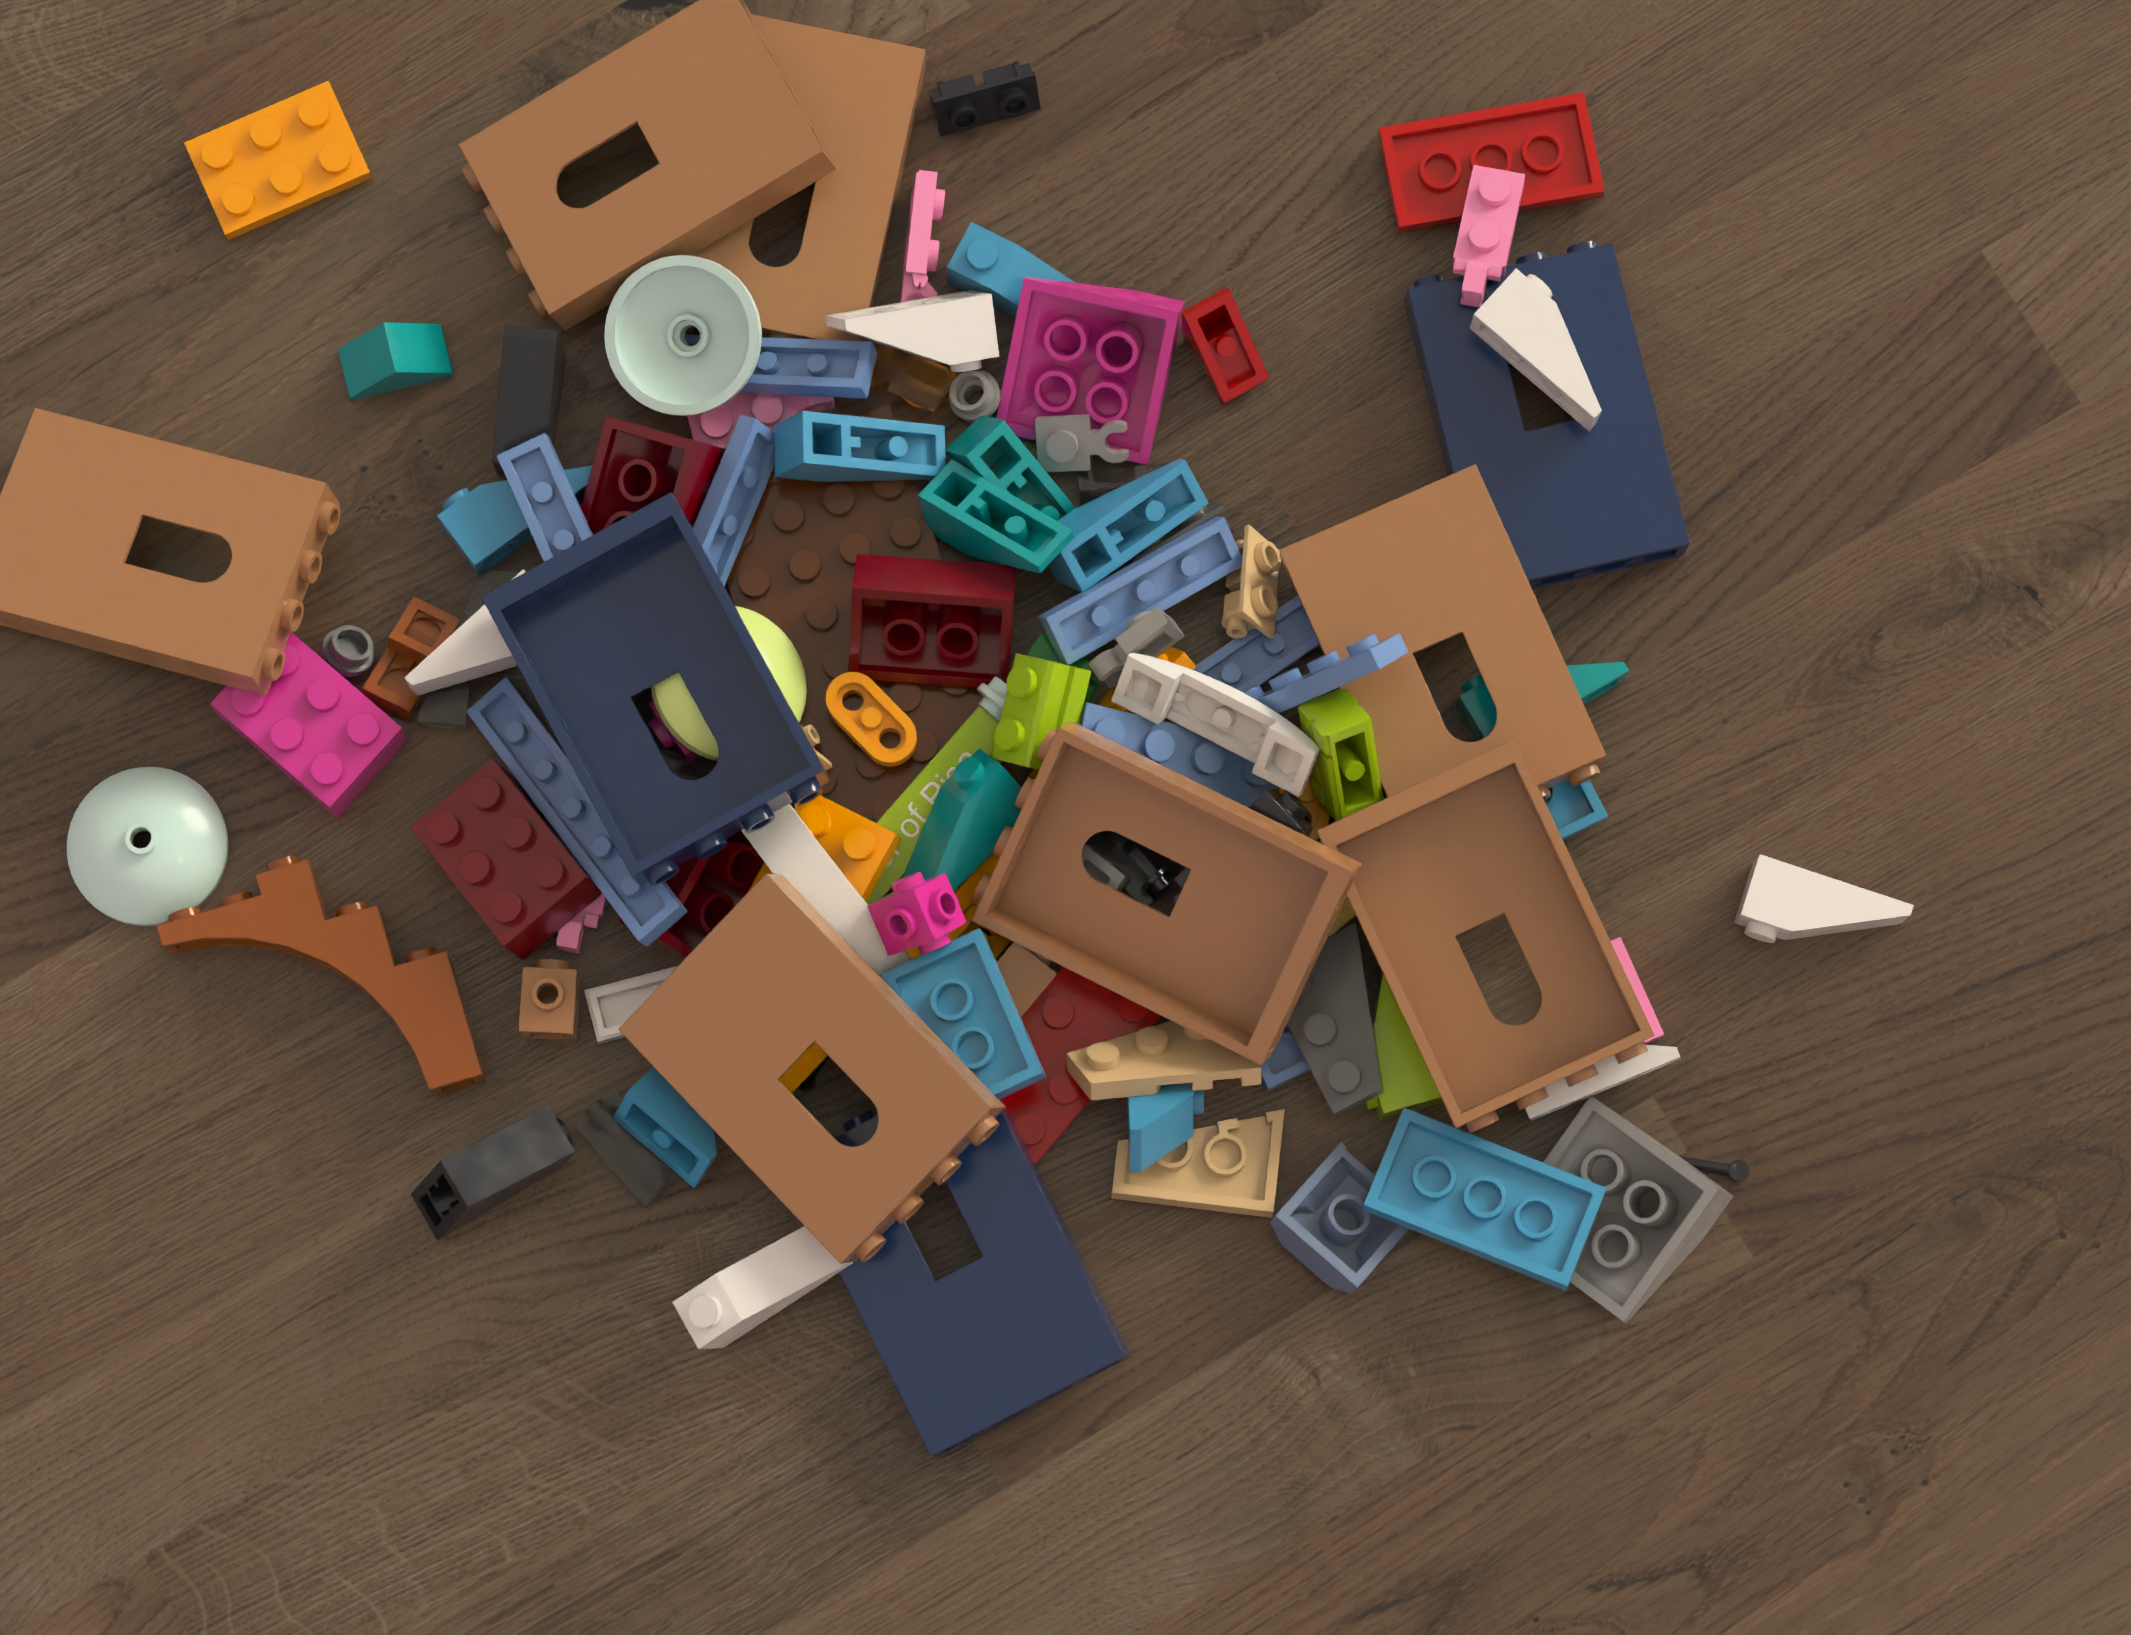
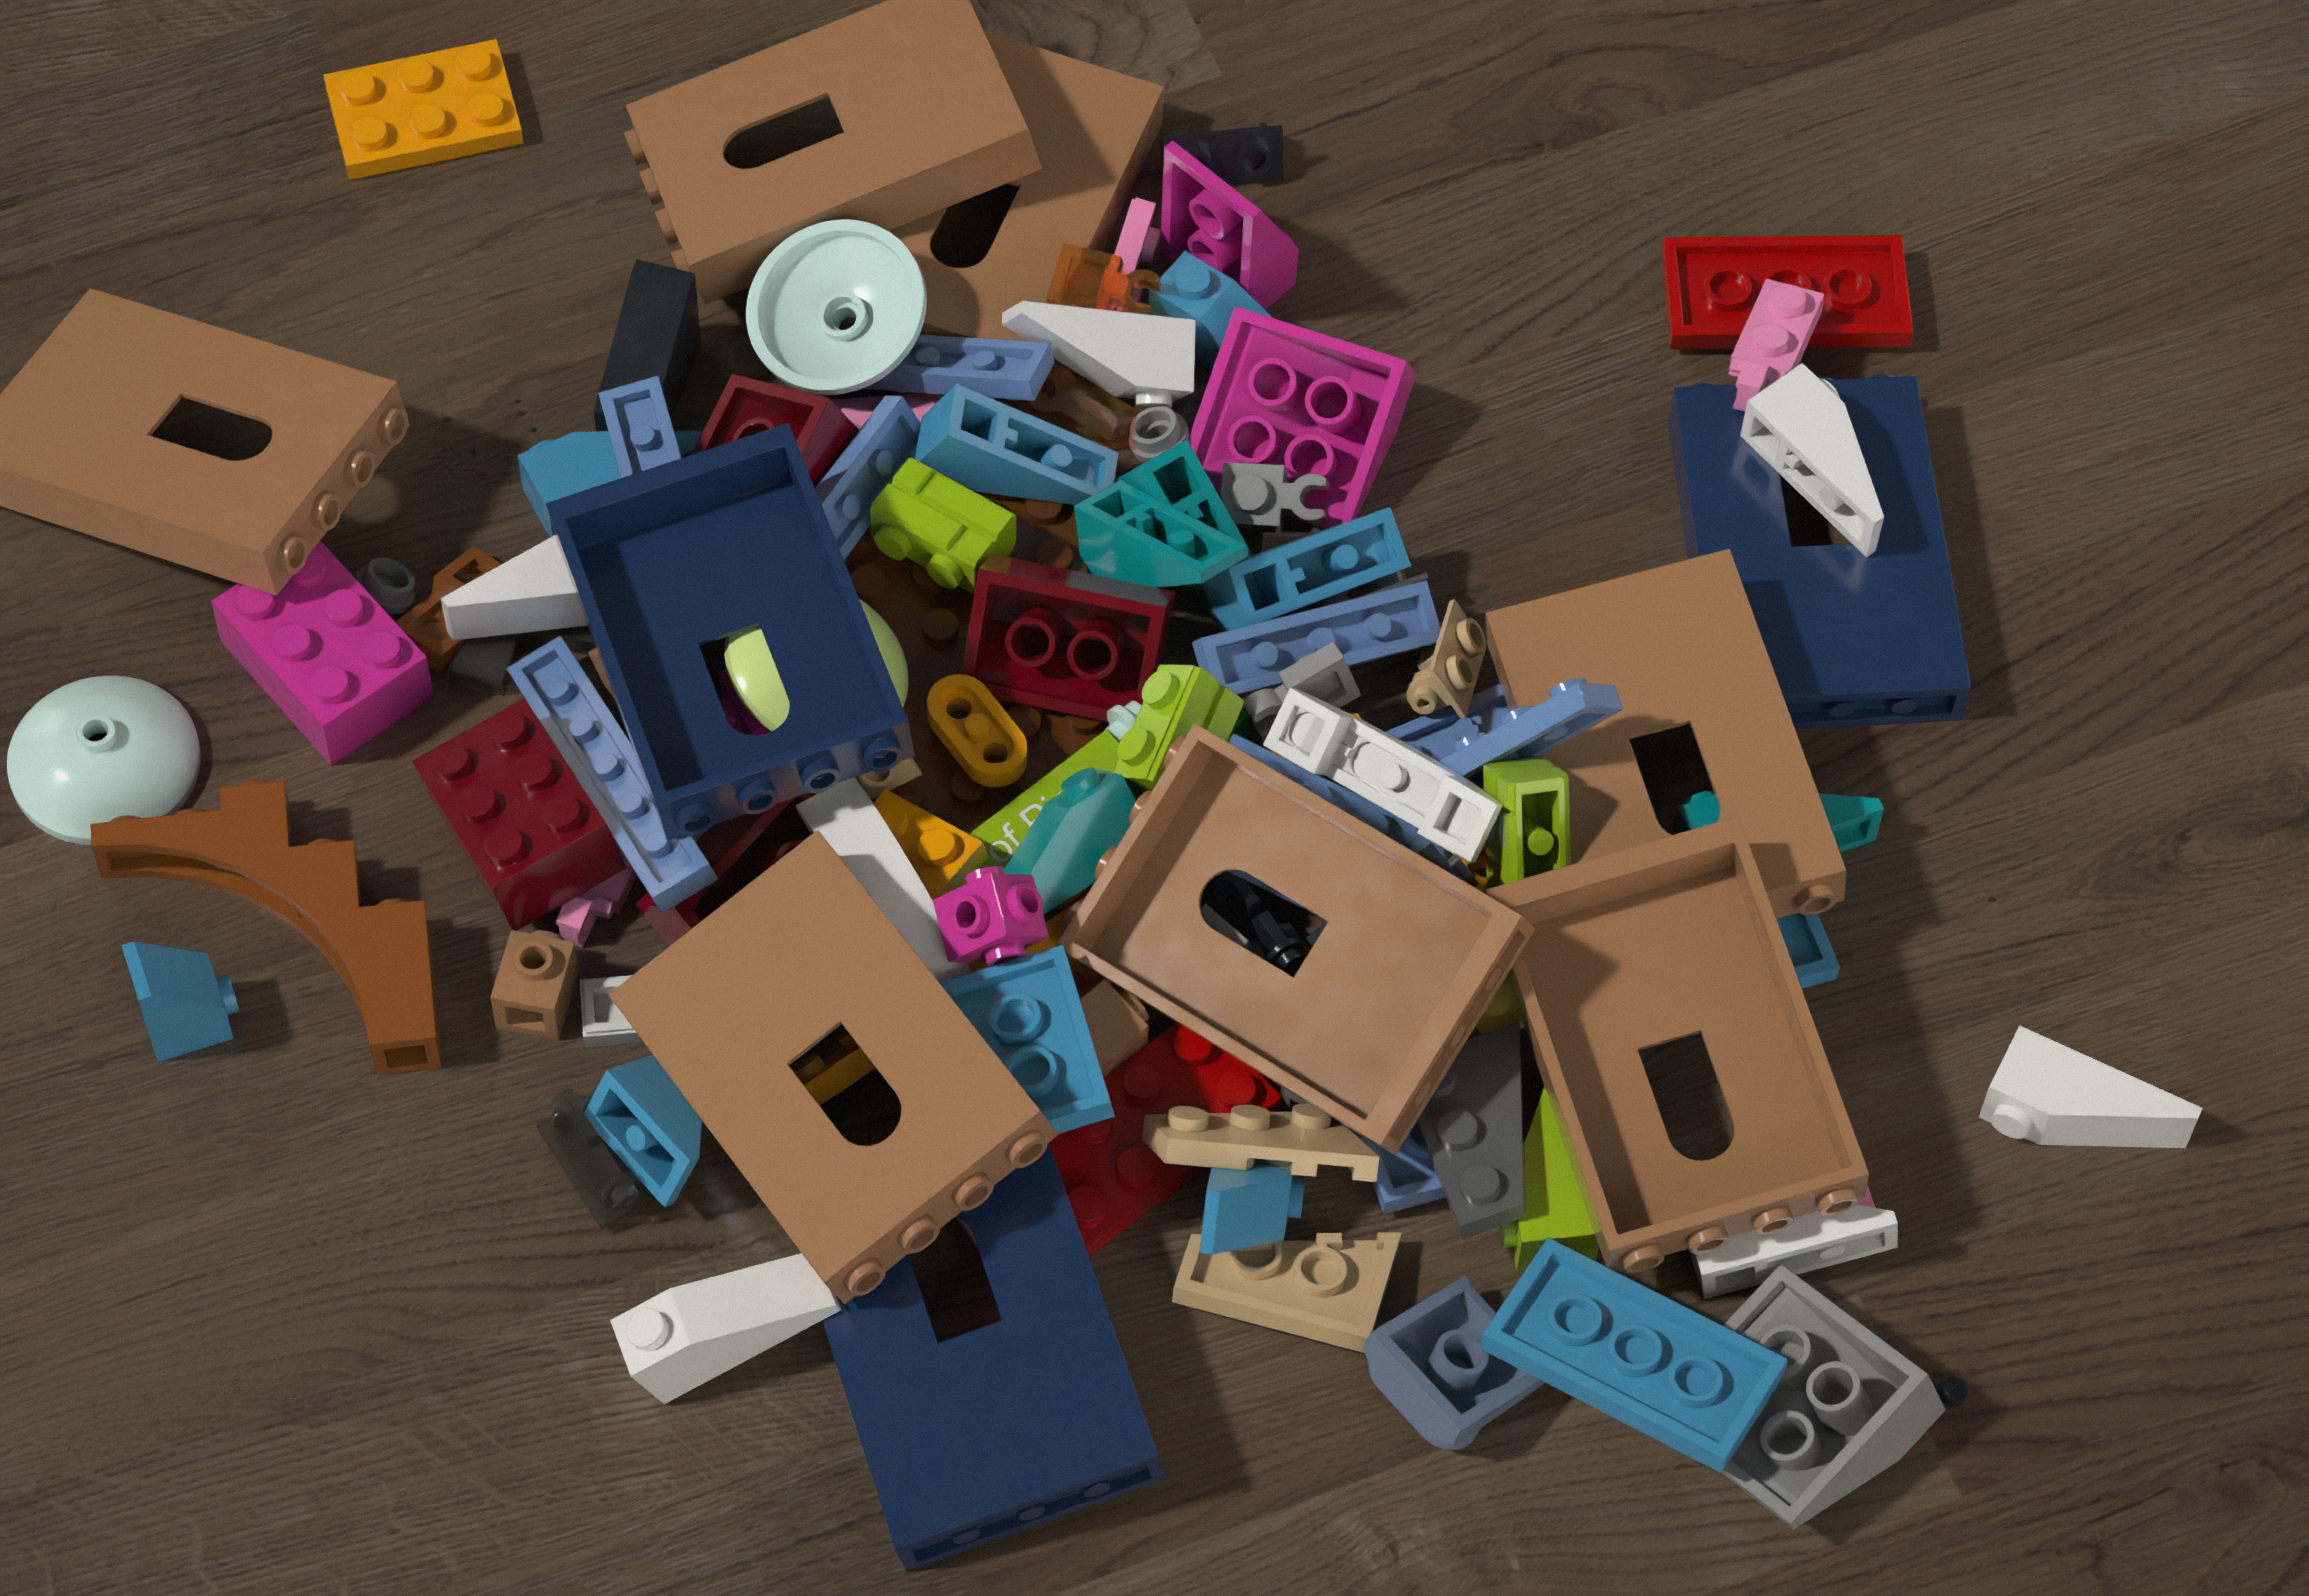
camera: 10 degrees right, 20 degrees down
(266, 1068) = (180, 998): none -> dark azure slope
(394, 358) = (507, 309): teal slope -> none
(492, 1171) = (422, 1151): black slope -> none
(808, 531) = (940, 525): none -> lime brick
(897, 272) = (1096, 281): none -> clear orange plate
(1001, 196) = (1223, 229): none -> dark pink slope
(1223, 345) = (1453, 416): red slope -> none

